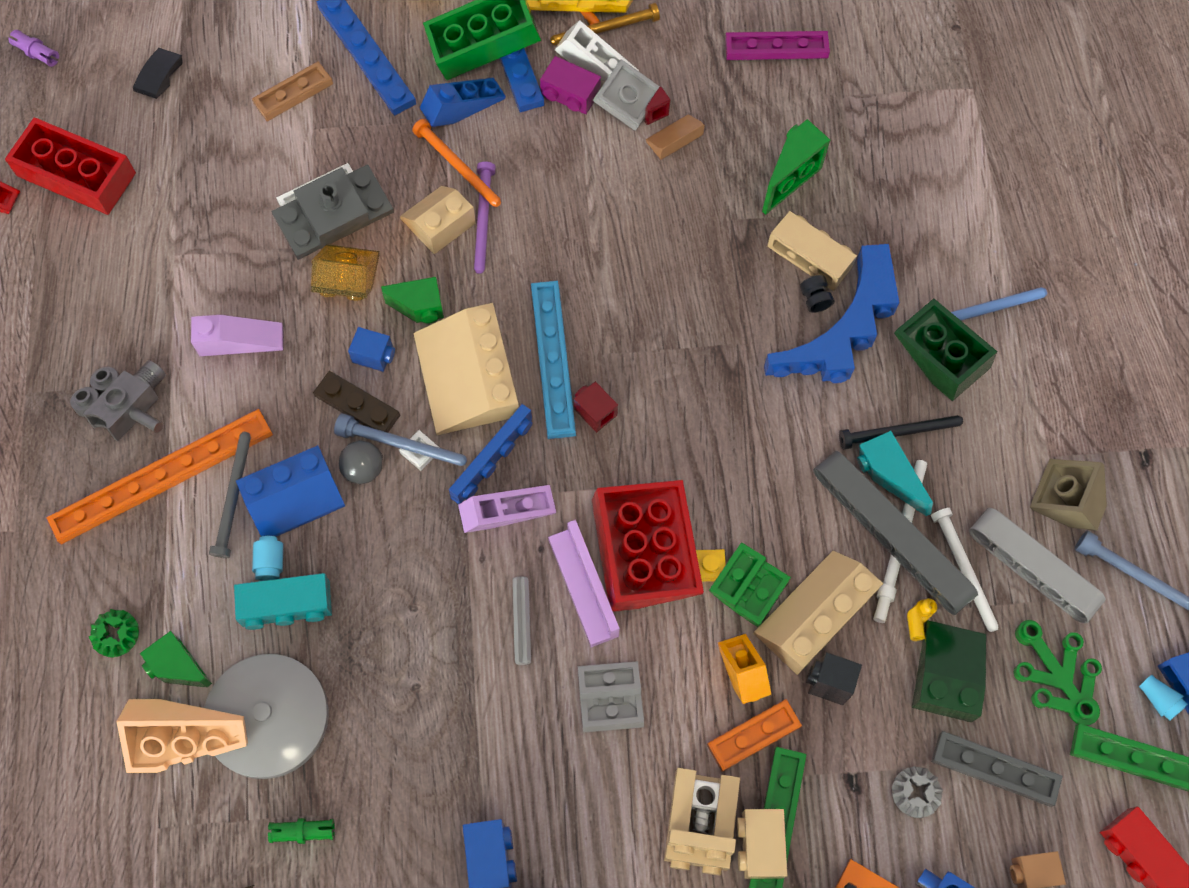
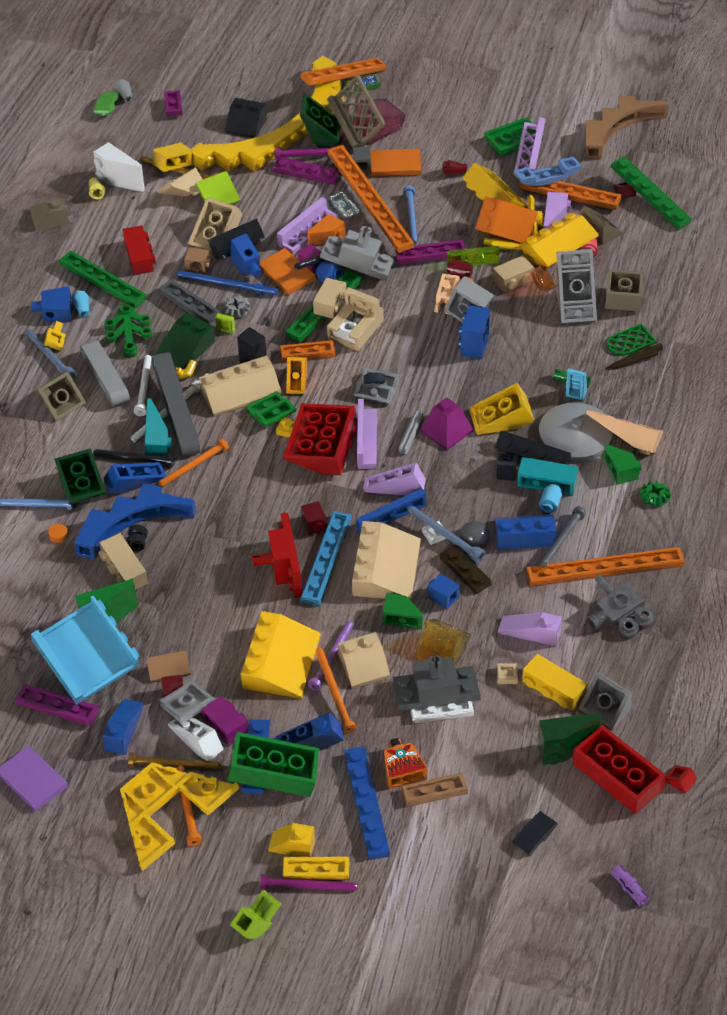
camera: 155 degrees left, 20 degrees down
(109, 259) = (607, 698): none -> light grey slope
(140, 181) = (562, 735): none -> dark green slope
(182, 263) = (554, 682): none -> yellow brick
(251, 266) = (507, 673): none -> tan tile
(283, 802) = (576, 384): none -> medium azure slope
(320, 645) = (530, 449): none -> black plate
(337, 99) = (403, 764): none -> torso
(350, 598) = (506, 467): none -> black slope
(391, 705) = (502, 411): none -> yellow slope
(470, 650) = (446, 424): none -> magenta slope
(544, 189) = (279, 656): none -> yellow slope
(602, 315) = (282, 556): none -> red brick
(616, 694) = (378, 378): none -> black wheel
(687, 45) = (122, 726): none -> blue slope
(777, 80) = (86, 650): none -> medium azure panel
(788, 492) = (222, 445): none -> orange bar
(877, 389) = (129, 477): none -> blue slope
(902, 849) = (258, 288): none -> blue bar
(912, 737) = (225, 323): none -> lime tile
(926, 275) = (58, 533): none -> orange tile
(1155, 605) = (54, 337): none -> yellow plate

